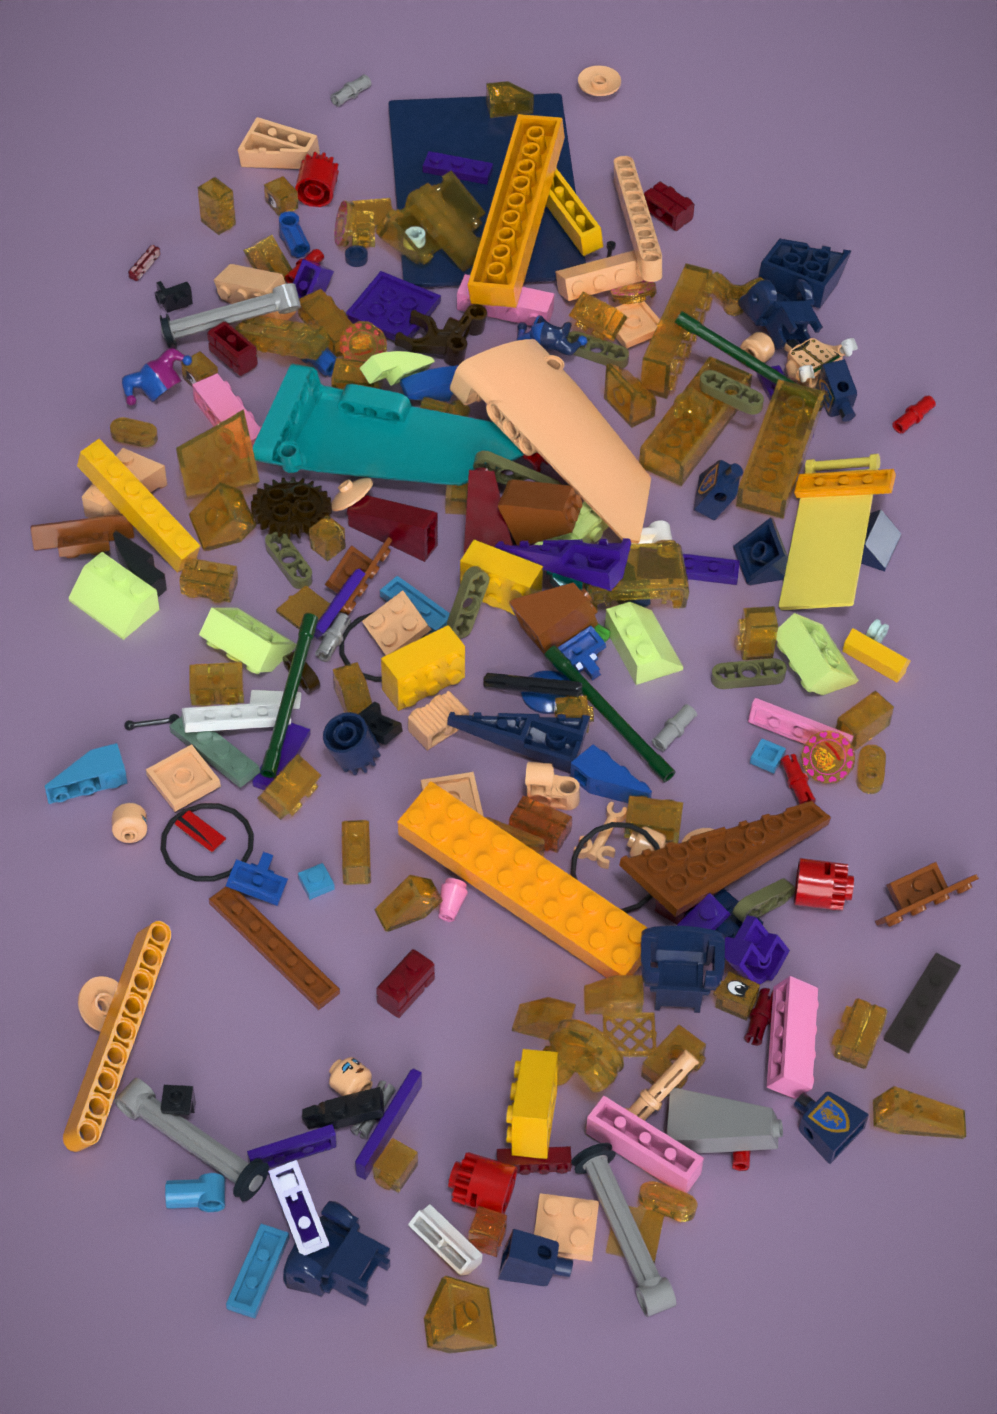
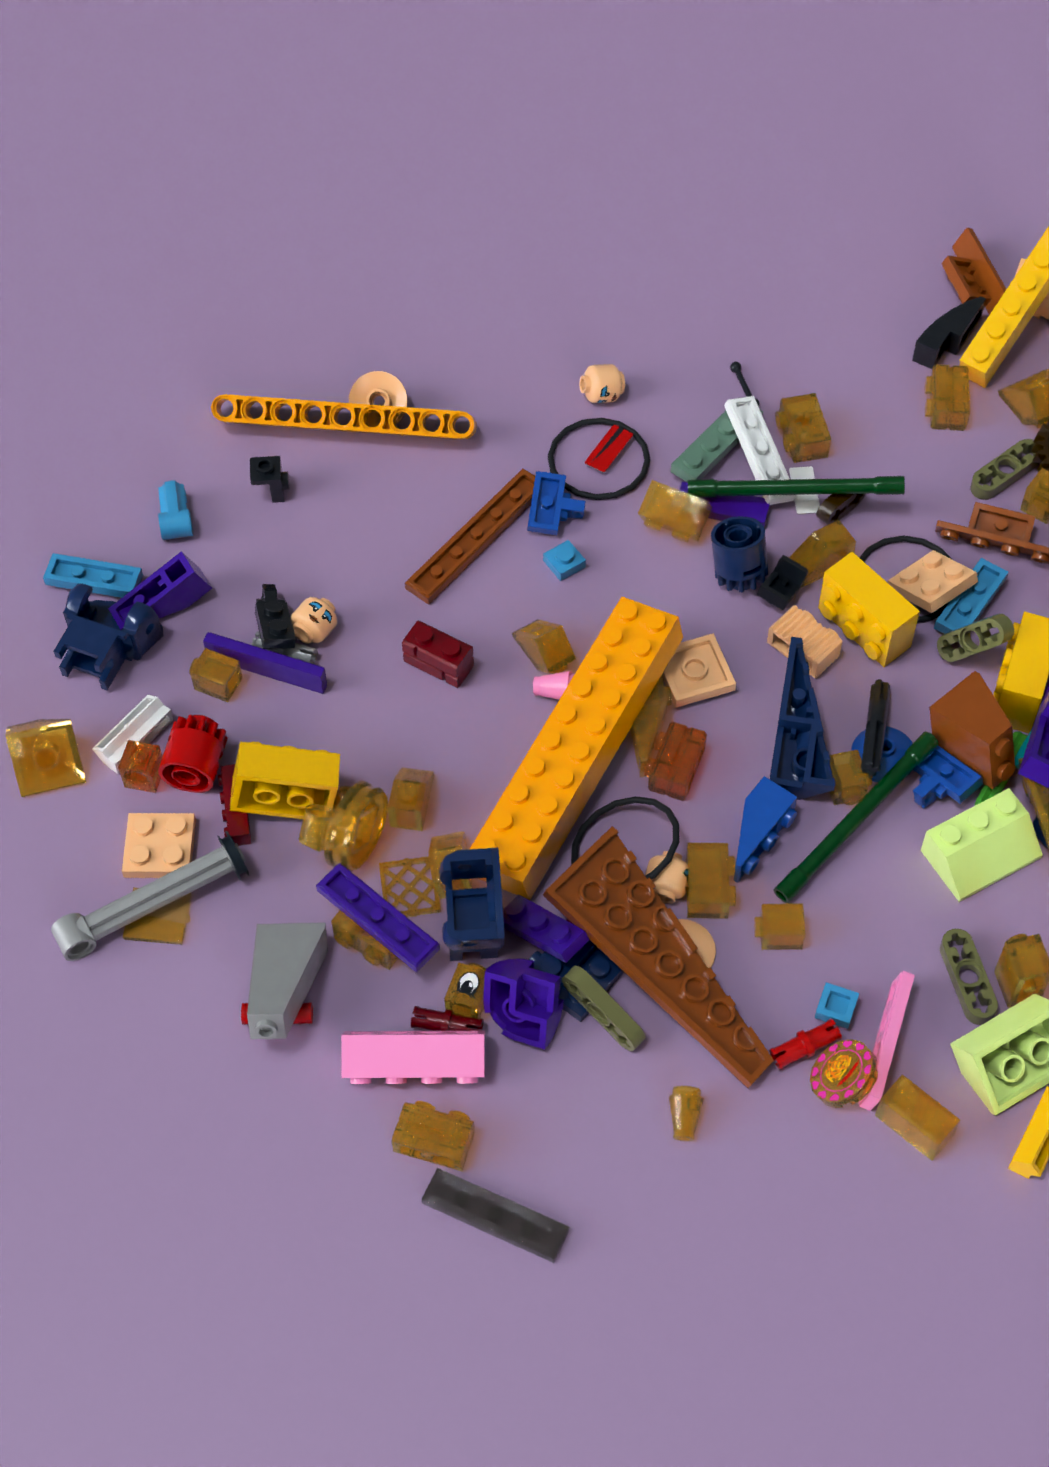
camera: 85 degrees right, 5 degrees up
(93, 772) = (662, 343): dark azure slope -> none
(114, 596) = (901, 320): yellowish green slope -> none
(141, 1102) = (193, 541): light grey piece -> none
(183, 778) = (672, 420): light nougat plate -> none
(245, 639) = (876, 440): yellowish green slope -> none
(295, 1147) = (228, 583): dark purple tile -> none
(301, 603) = (938, 498): clear yellow piece -> none
(332, 637) = (901, 525): light grey pin -> none
(338, 602) = (932, 513): dark purple tile -> none
(356, 852) = (600, 585): clear yellow brick -> none
(532, 1260) = (106, 807): dark blue torso -> none
(551, 788) = (728, 760): light nougat piece -> none
(597, 850) = (658, 825): light nougat bar -> none
(644, 1145) = (251, 904): bright pink brick -> none
(651, 1099) = (341, 921): light nougat pin -> none
(667, 1201) = (190, 941): clear yellow plate -> none
(668, 1047) = (378, 917): none -> dark purple tile
(674, 727) = (856, 893): light grey pin -> none
(699, 778) = (780, 926): none -> clear yellow brick
(822, 884) = (639, 1073): red gear -> none
(830, 1123) = (303, 1106): dark blue torso -> none
(856, 865) = (685, 1111): none -> clear yellow cone
(871, 767) = (849, 1139): clear yellow plate -> none
(917, 1115) = (323, 1213): clear yellow slope -> none
(919, 888) = (658, 1201): dark orange bracket -> none

